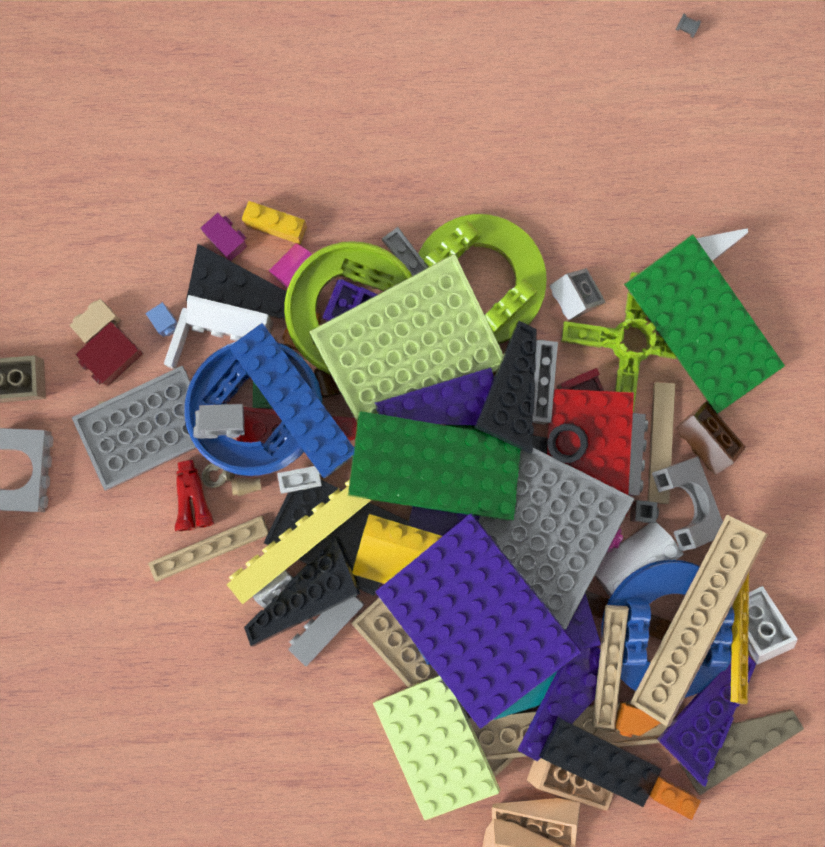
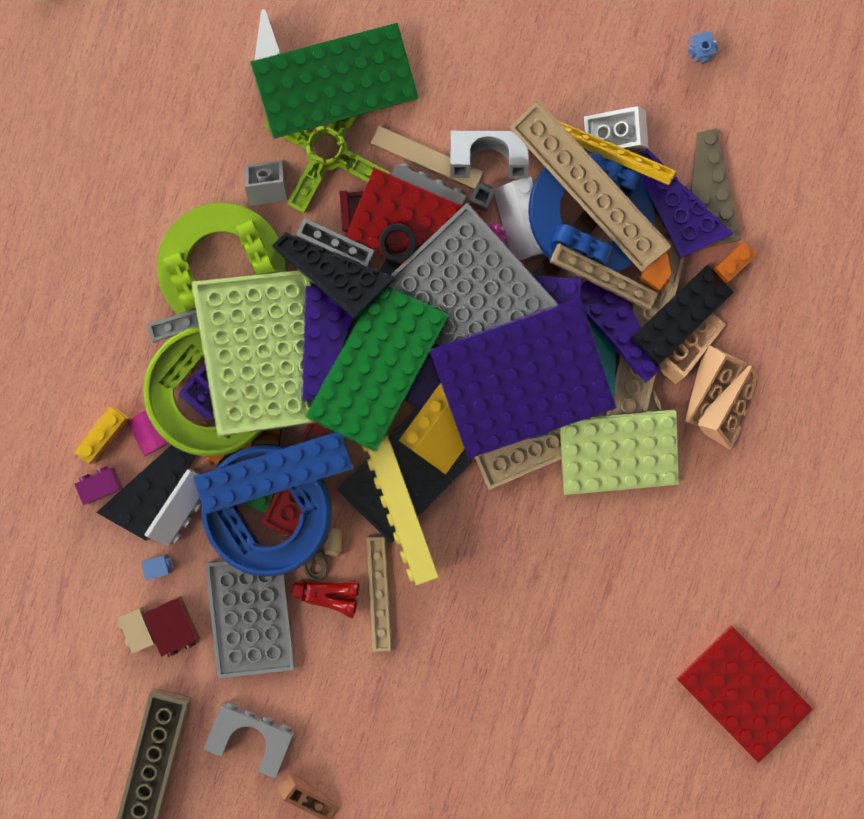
camera: 70 degrees left, 5 degrees up
(177, 341) = (180, 559): white tile -> none
(219, 420) = (269, 544): light grey hinge -> none
(272, 589) = (436, 546): white plate -> none
(299, 479) = (346, 492): white plate -> none
(311, 592) = (449, 515): black wing -> none
(322, 630) = (483, 512): light grey brick -> none
(711, 438) = (438, 112): reddish brown slope -> none

